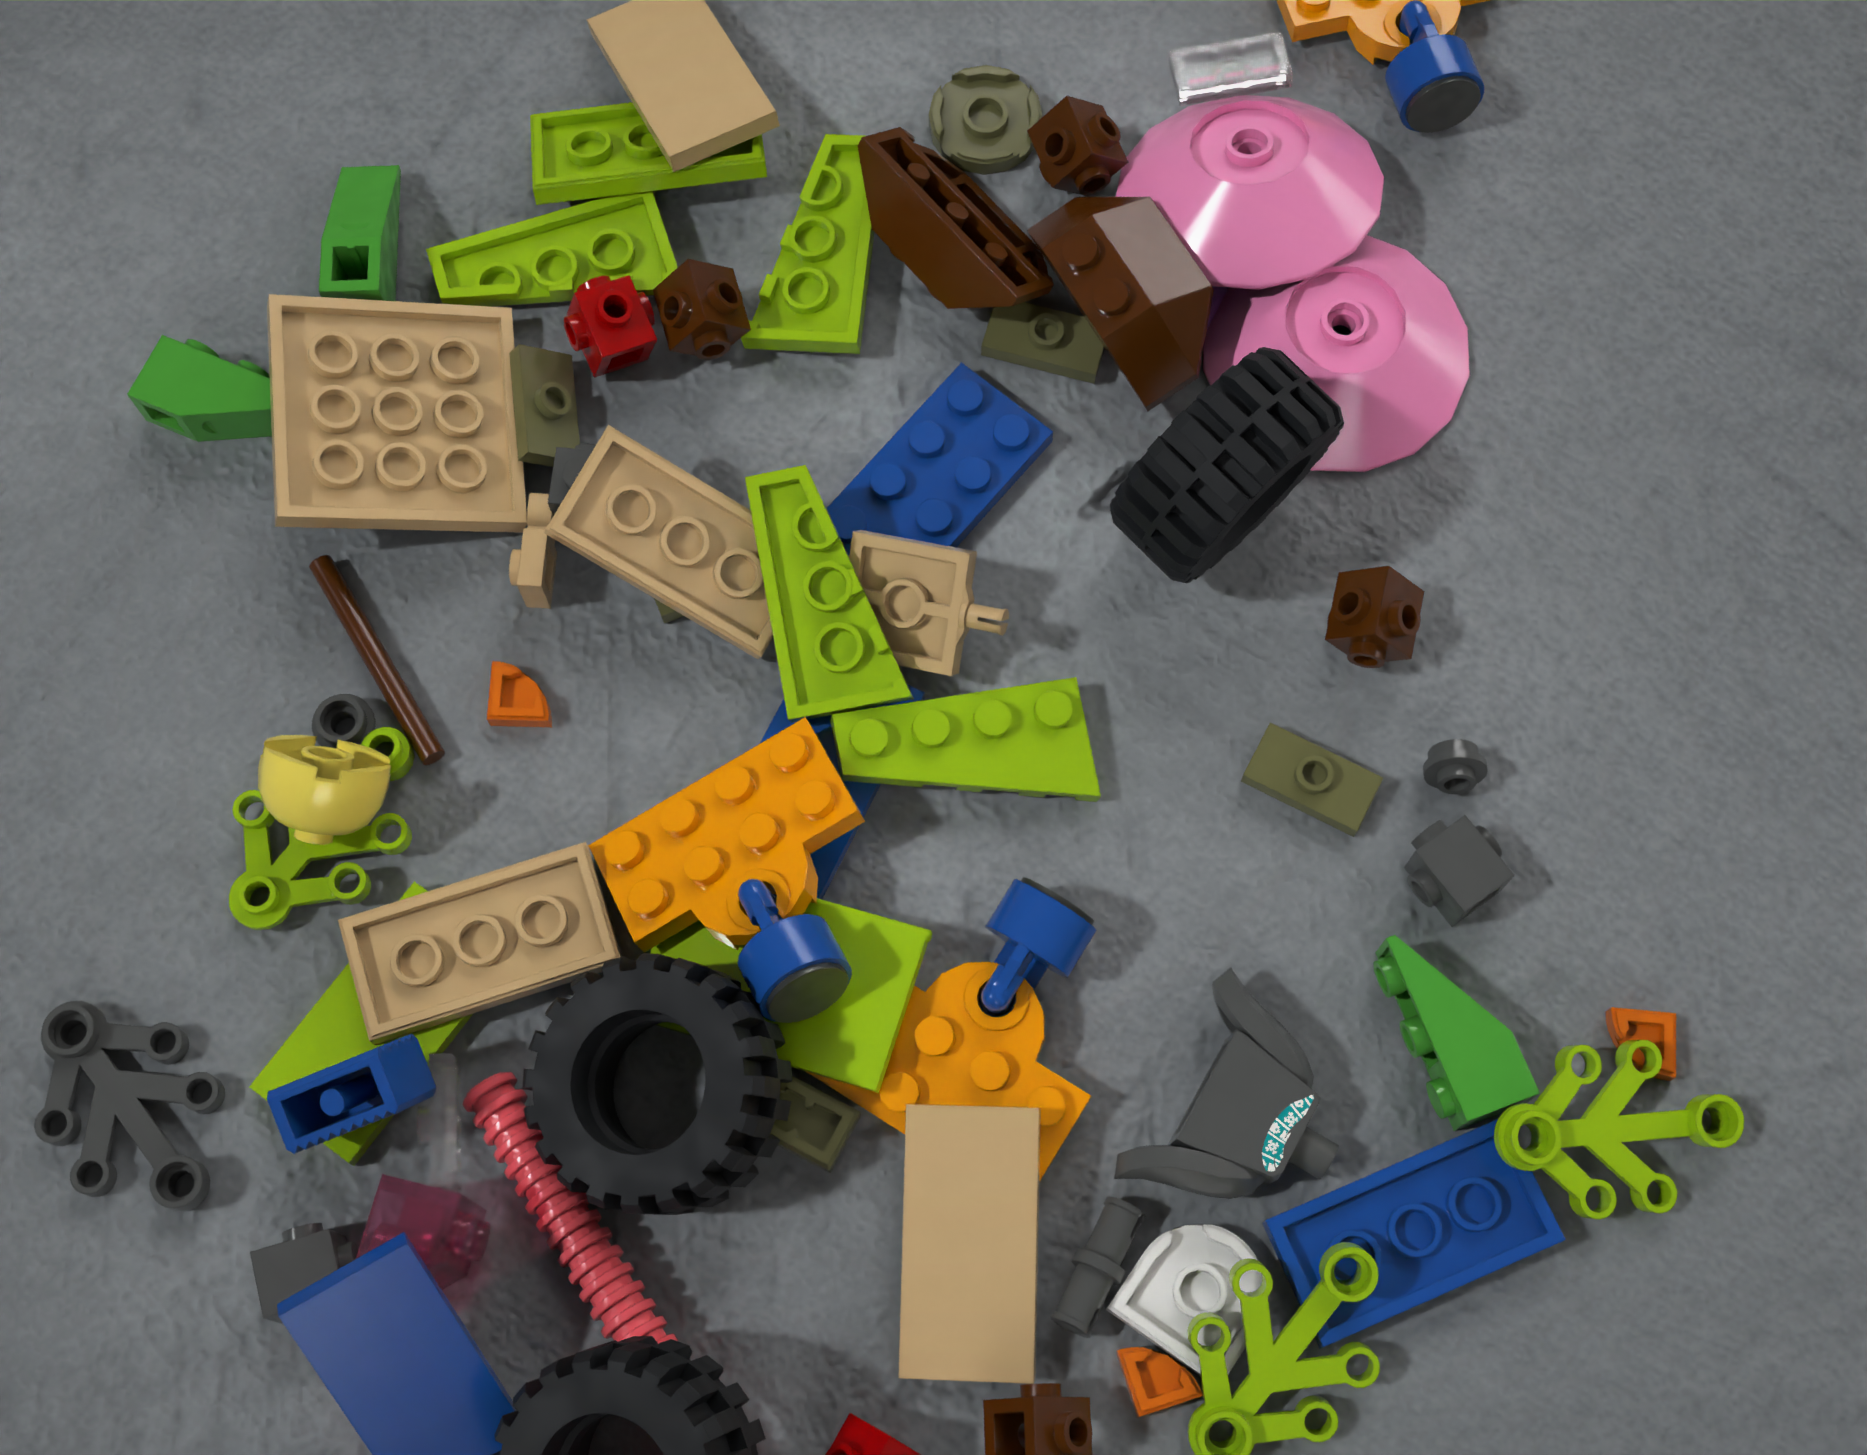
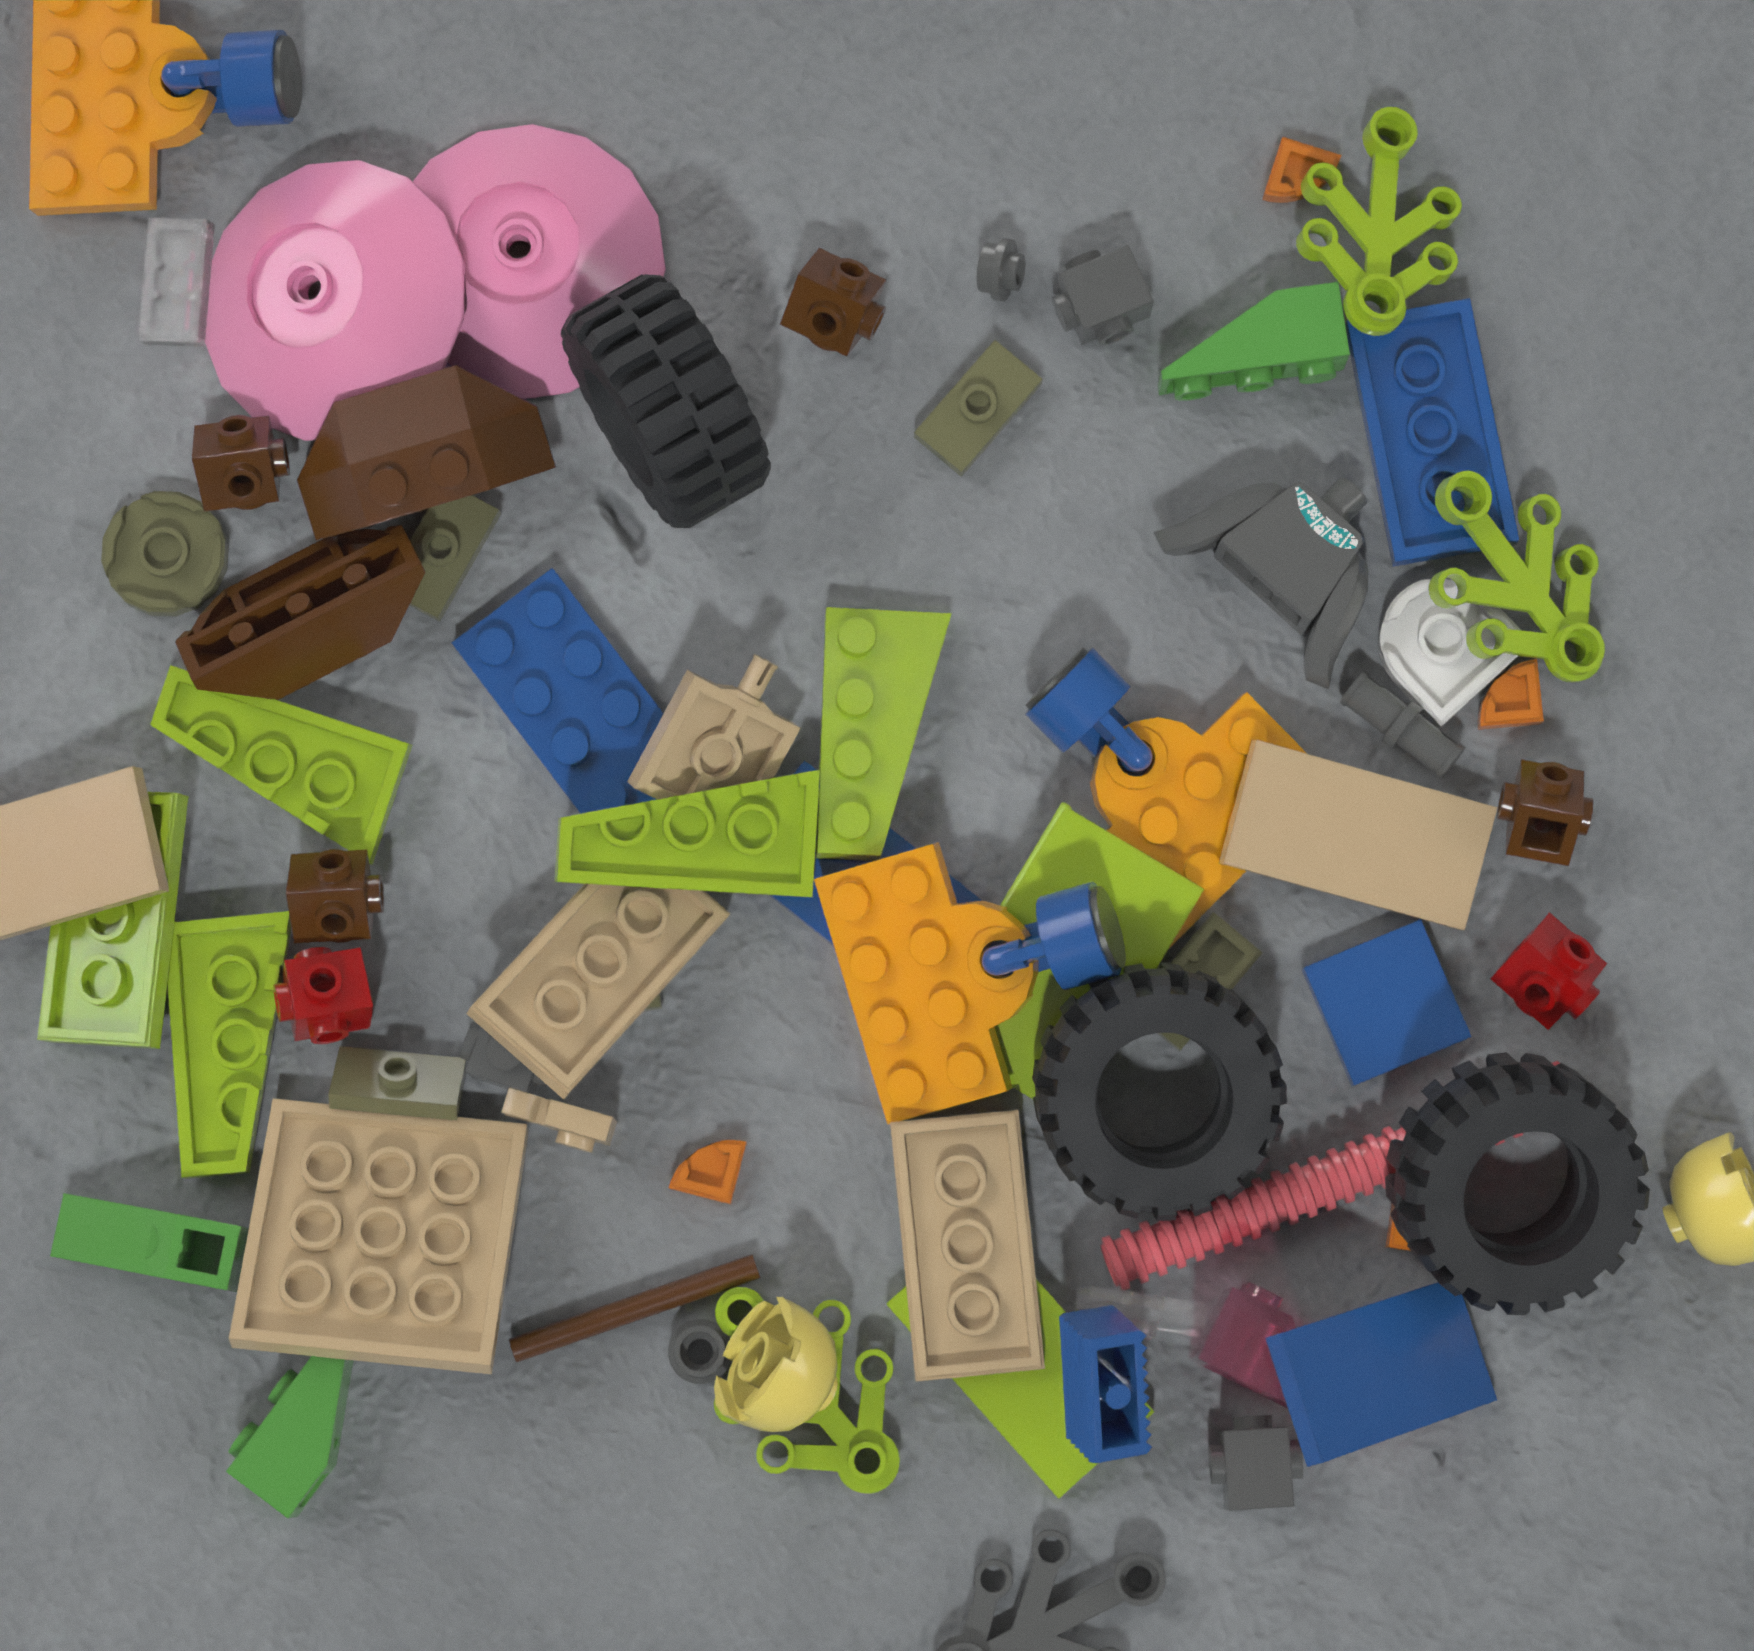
camera: 75 degrees left, 10 degrees up
(807, 1313) = (1386, 1003): none -> blue tile

